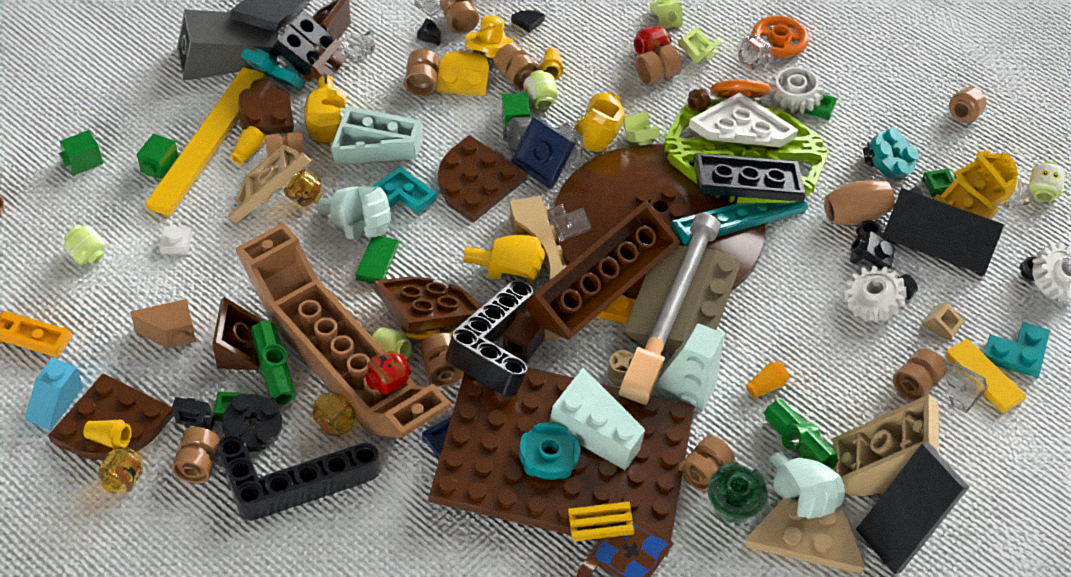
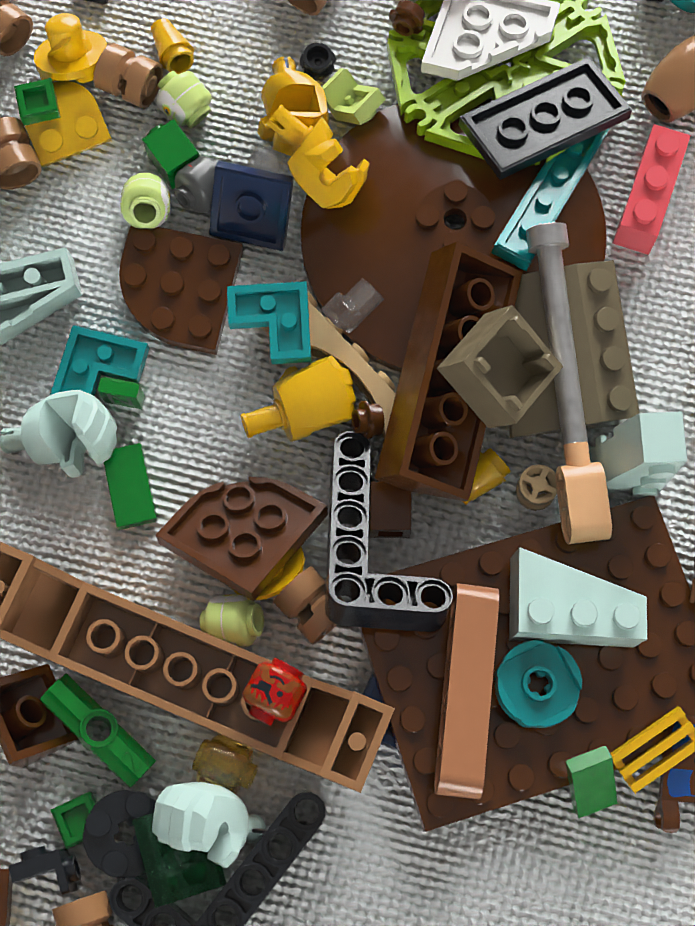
camera: 25 degrees left, 25 degrees up
(276, 437) = (174, 872): none -> clear green plate
(311, 429) = (205, 820): none -> light aqua piece
(404, 210) = (121, 393): none -> green tile
(454, 53) = (37, 101): none -> green tile
(483, 126) = (145, 201): none -> yellowish green head
(502, 430) = (467, 692): none -> nougat beam
(523, 204) = (279, 307): none -> teal plate
(538, 279) = (368, 419): none -> reddish brown plate
(549, 524) = (591, 781): none -> green tile
(591, 346) = (488, 475): none -> yellow cone
(592, 131) = (311, 155): none -> yellow piece
(631, 273) = (500, 367): none -> dark tan container
(634, 104) = (317, 52): none -> black plate
(810, 239) = (651, 189): none -> coral arch

